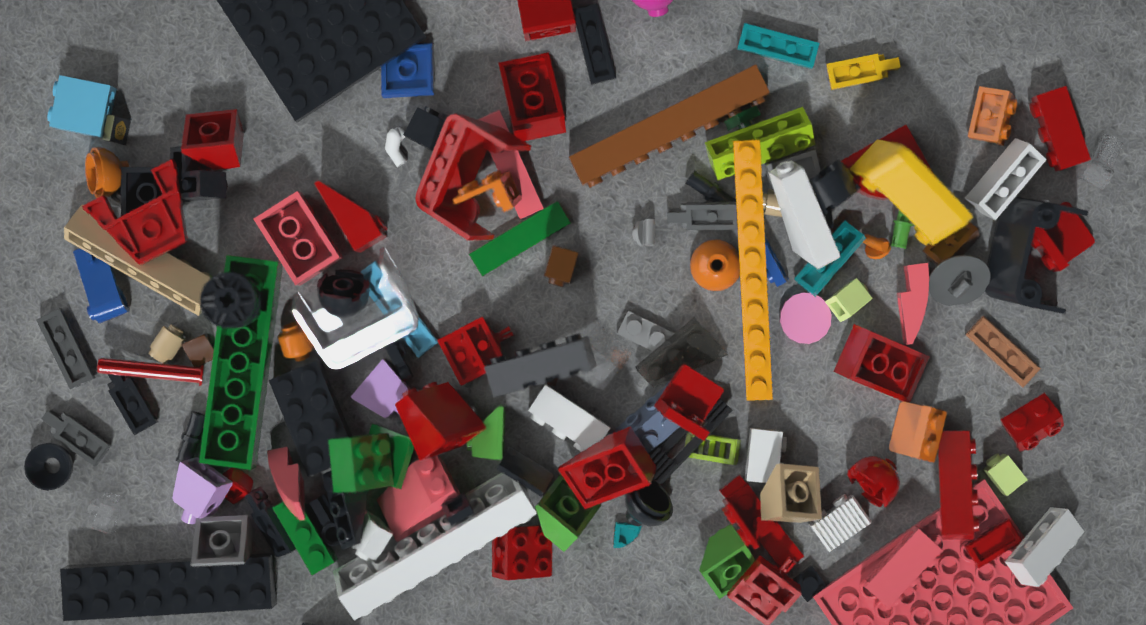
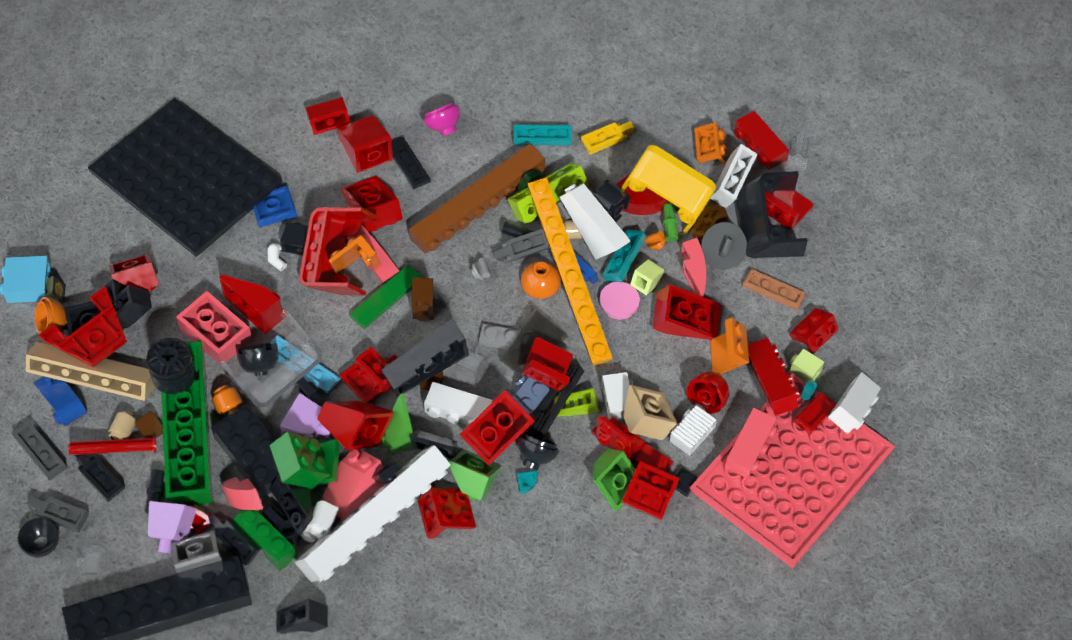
camera: 15 degrees left, 30 degrees down
(995, 514) = (808, 390): none -> teal tile

